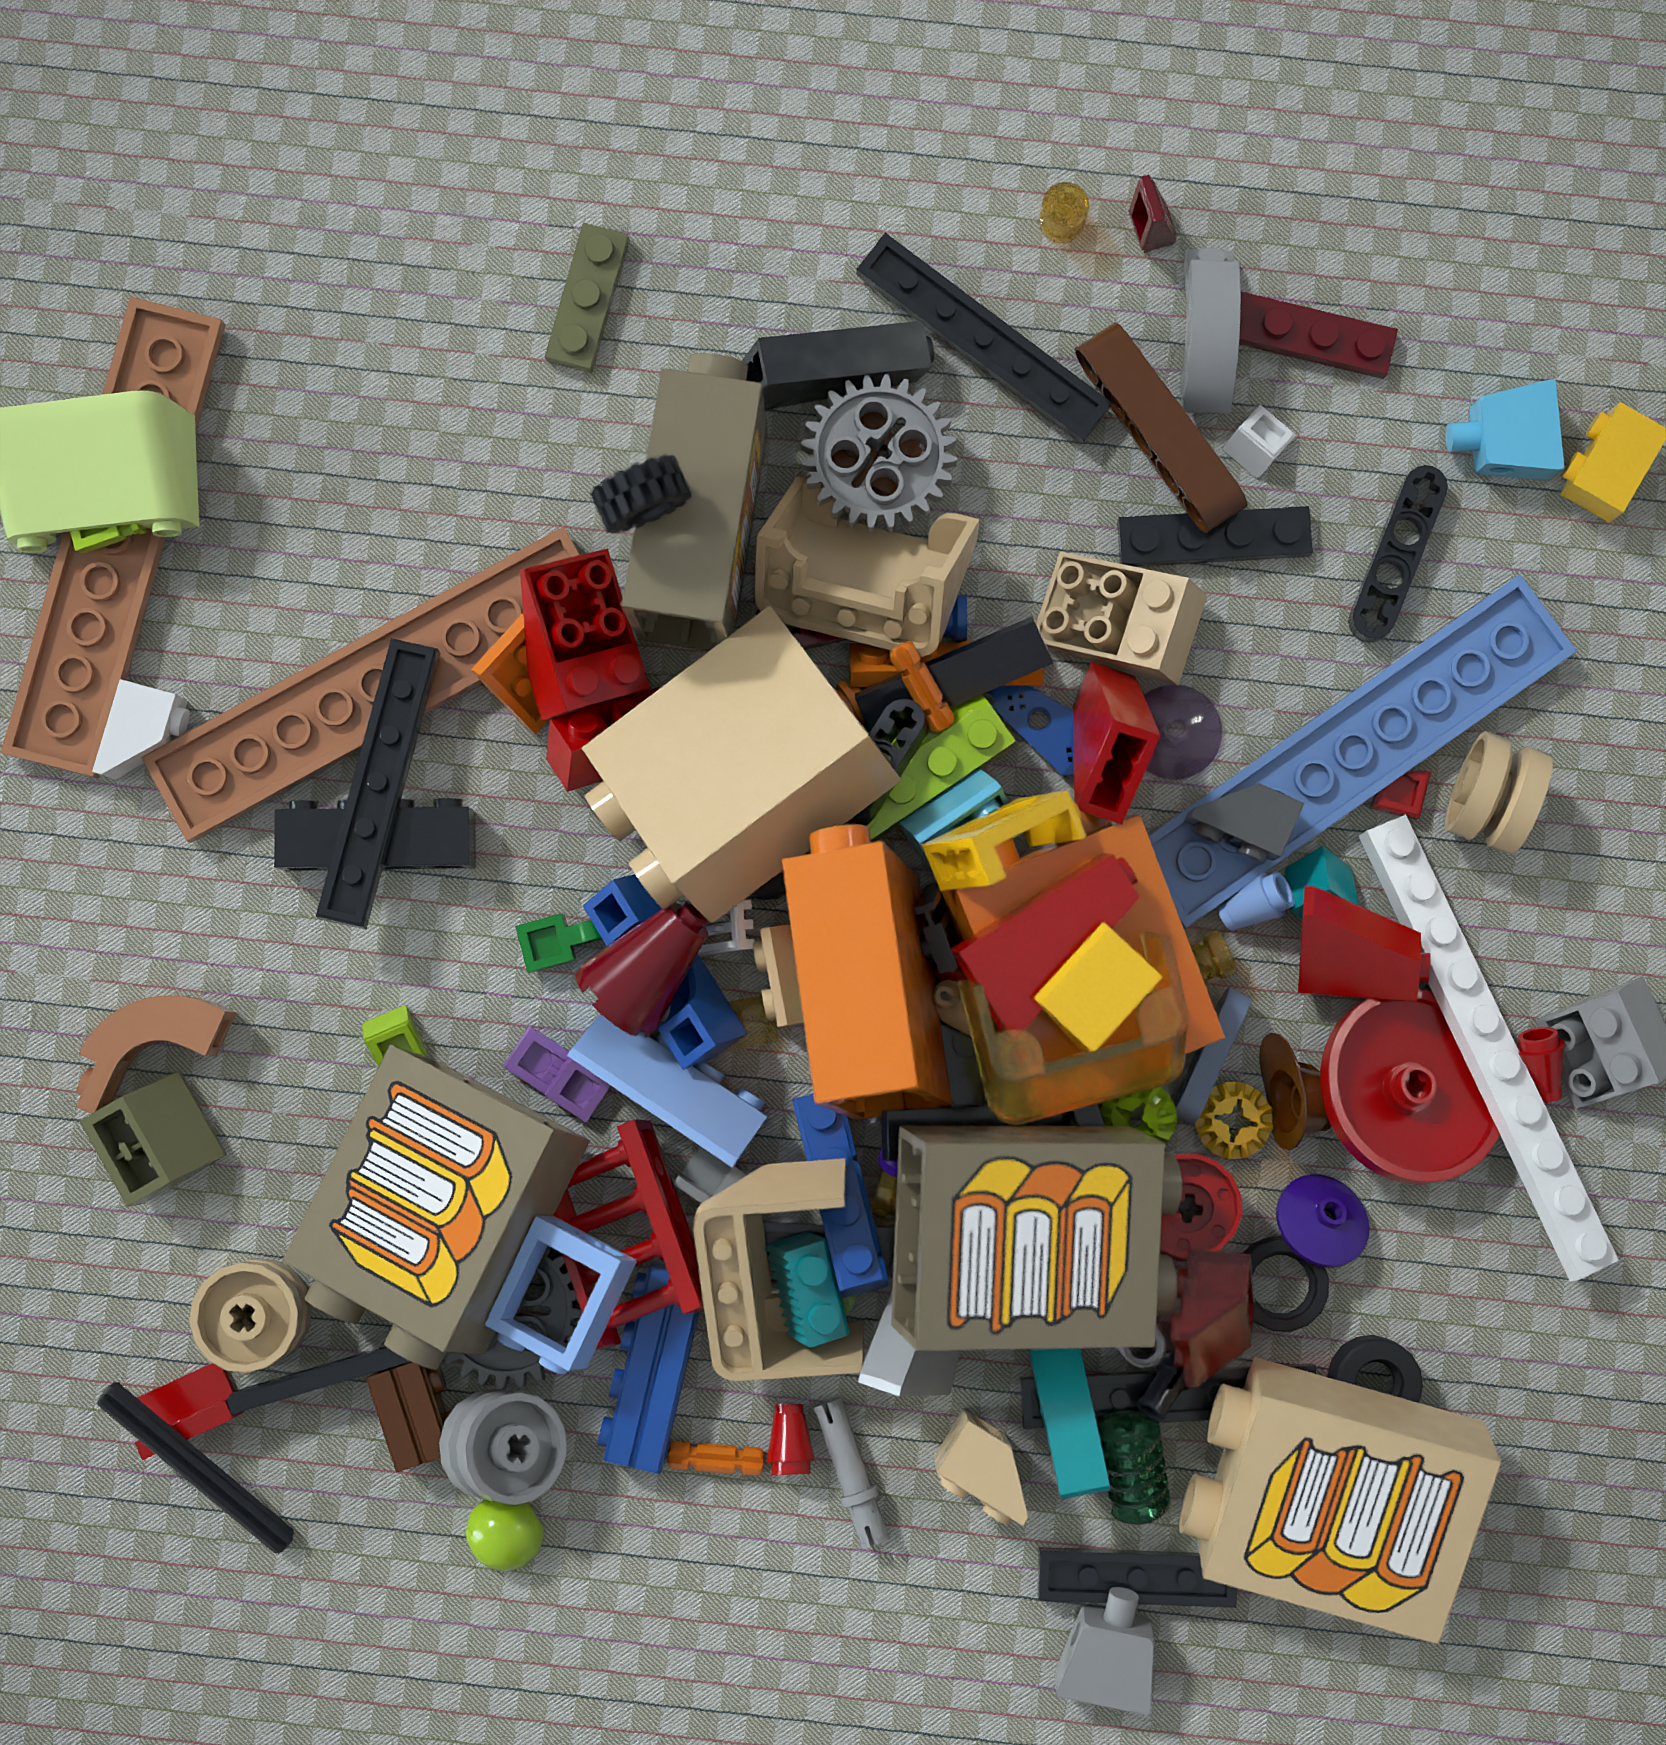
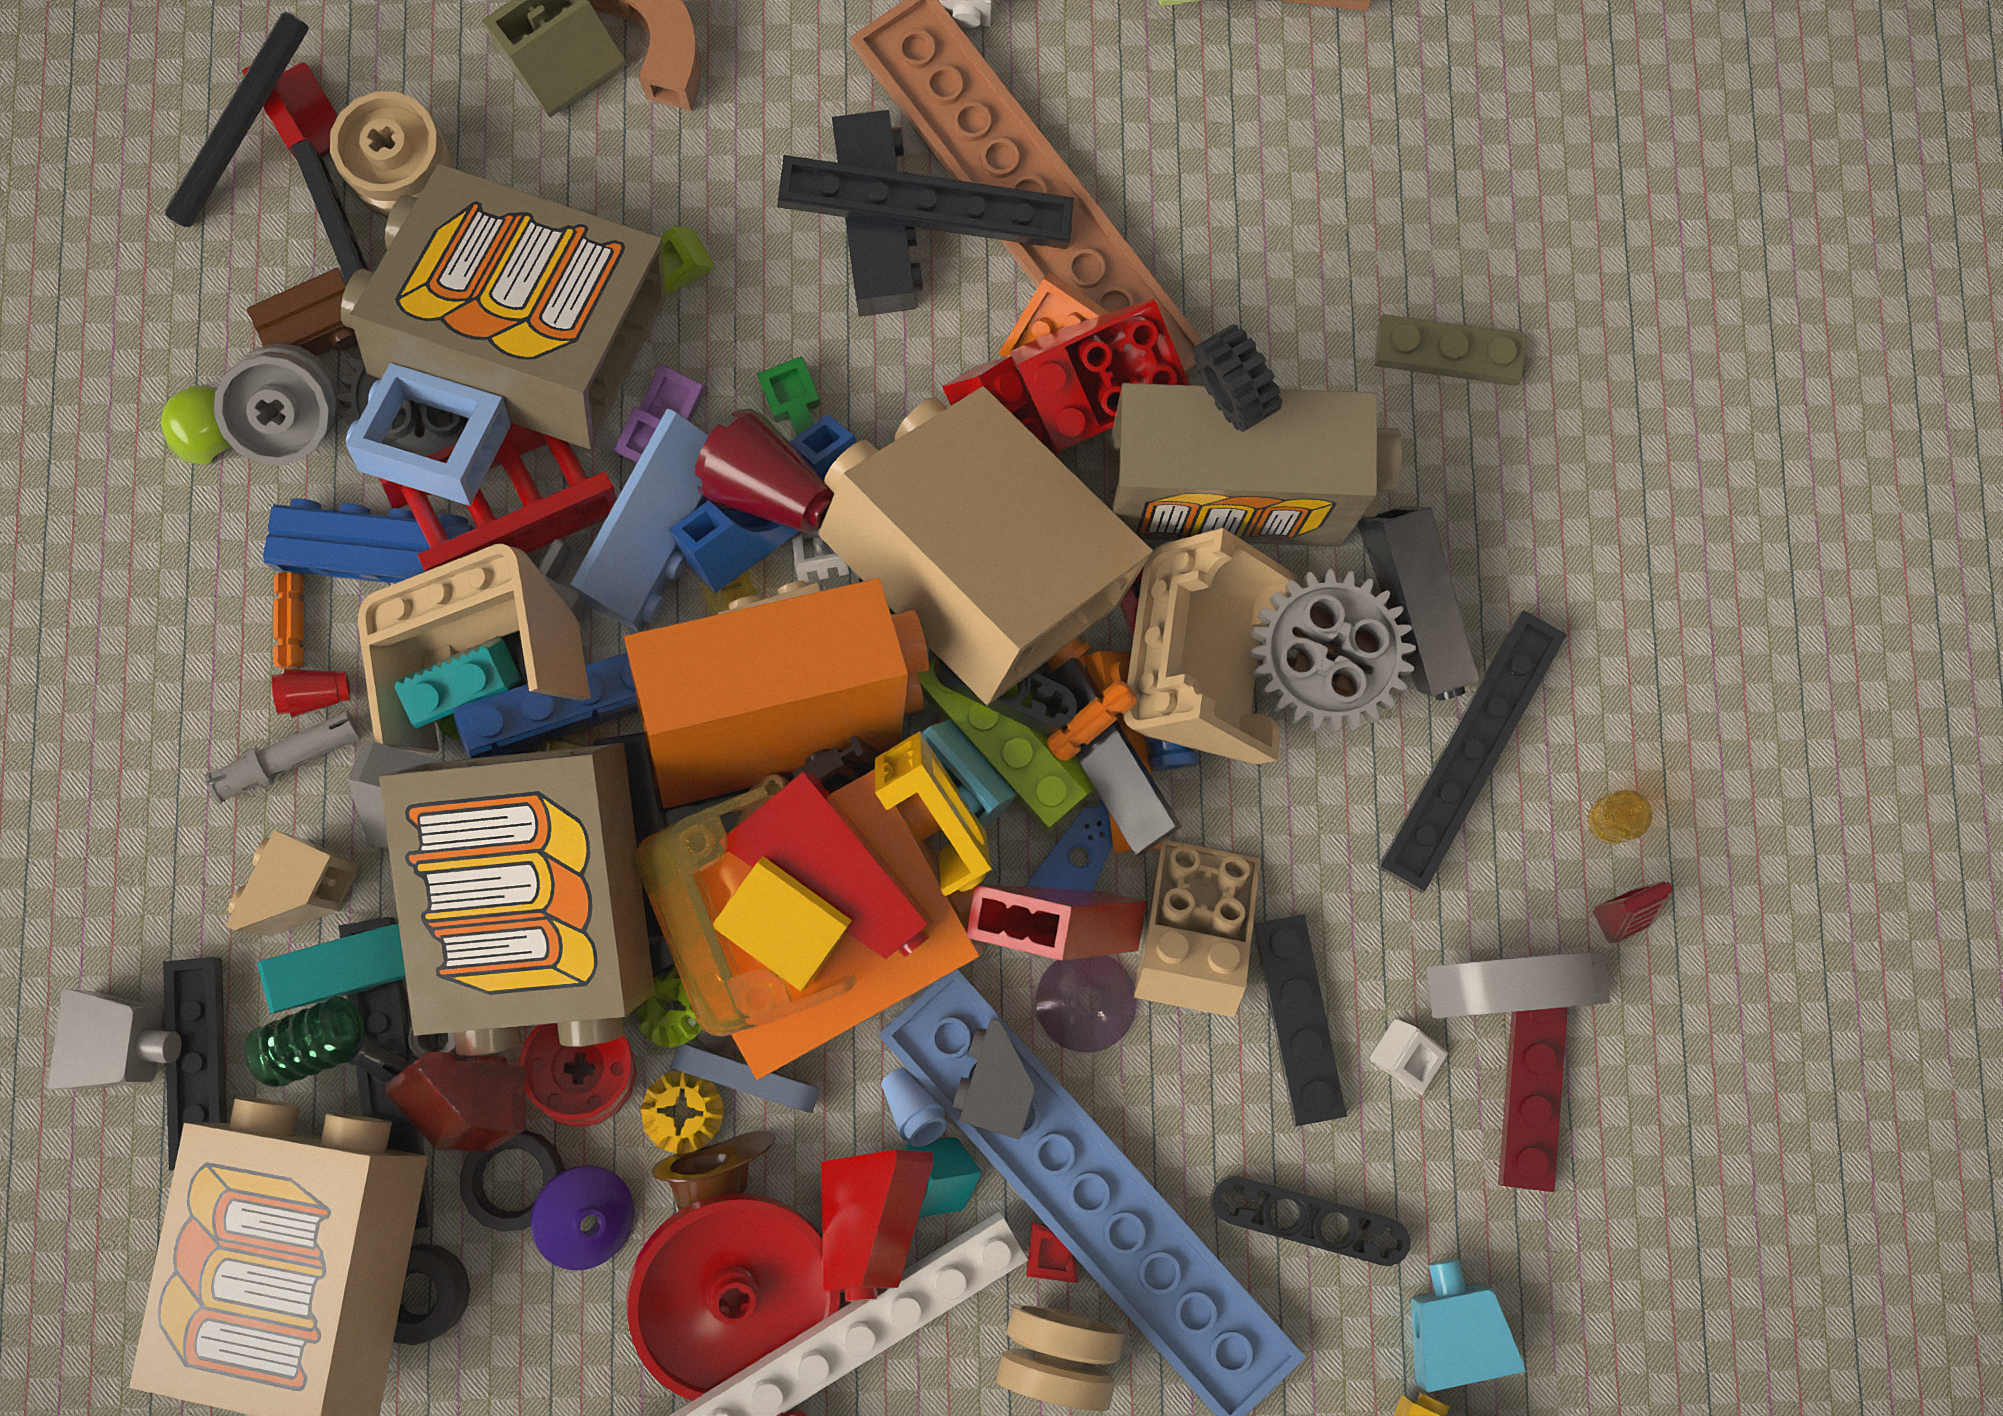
camera: 75 degrees right, 5 degrees down
(1161, 427) = (1405, 945): reddish brown beam -> none
(1213, 957) = (845, 1059): clear yellow wheel -> none

